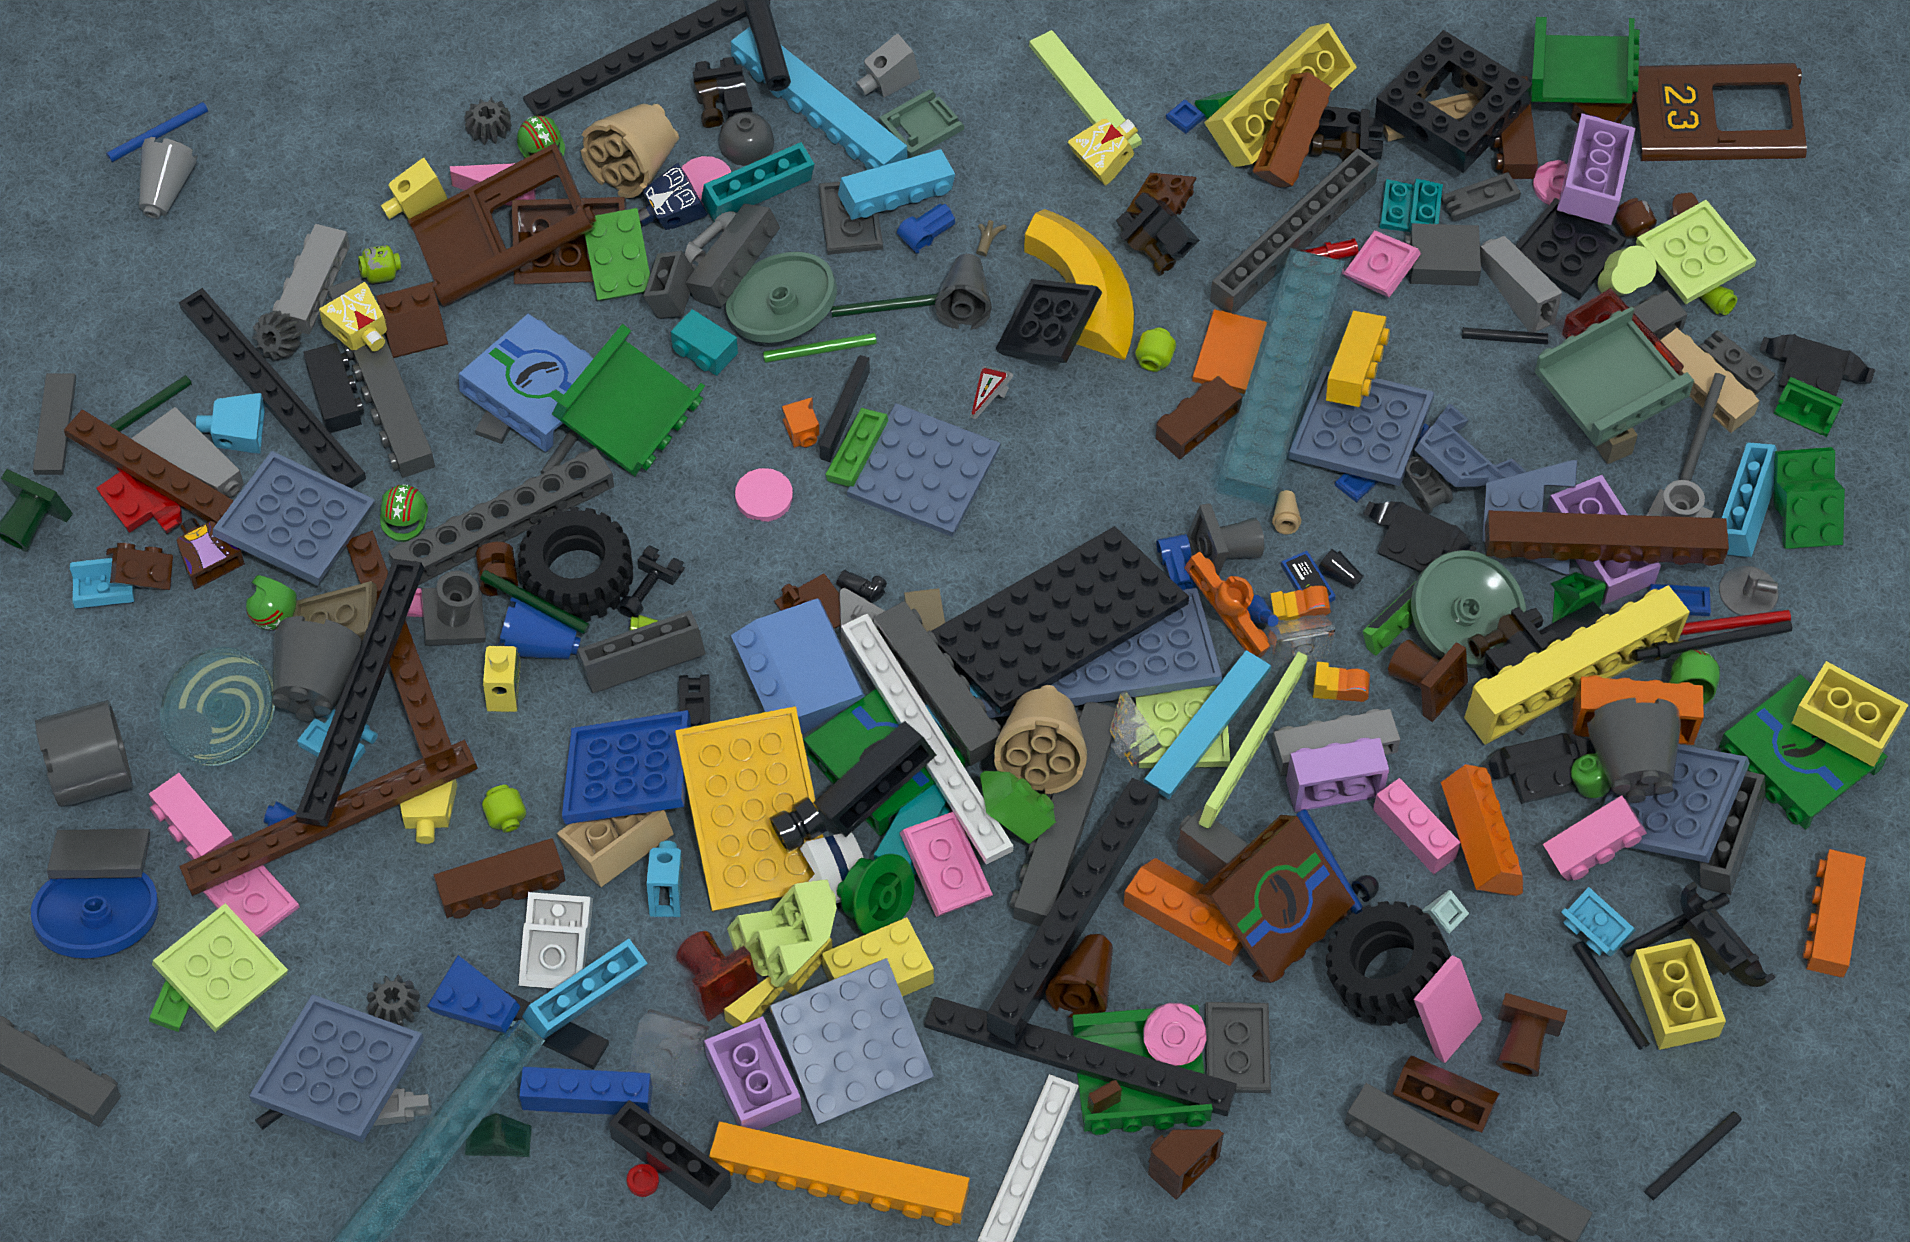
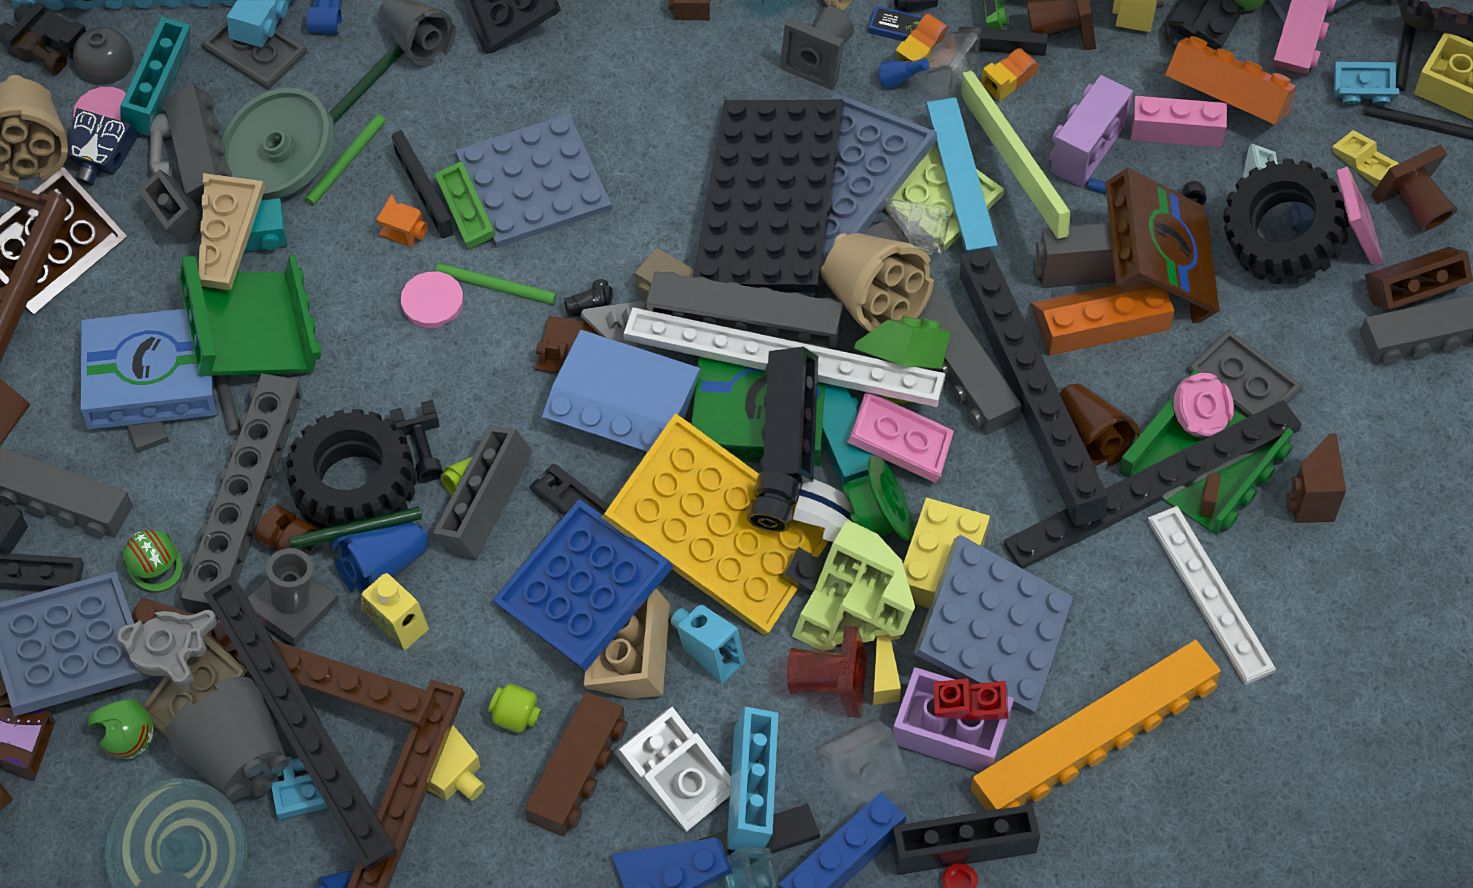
camera: 45 degrees left, 0 degrees up
(342, 571) = (167, 643): none -> light grey tile
(618, 255) = (106, 219): bright green plate -> none
(684, 323) = (226, 224): none -> tan wing
(768, 1070) = (971, 701): none -> red slope
(774, 889) = (803, 571): none -> black plate
(817, 521) = (498, 284): none -> bright green bar
(990, 384) = (514, 80): piece -> none
(1175, 556) = (792, 84): blue piece -> none
(1230, 601) = (877, 79): orange plate -> none
(1343, 730) = (1053, 108): light grey brick -> none
(1364, 656) = (1008, 41): none -> black tile
(1529, 973) = (1363, 156): none -> light yellow slope

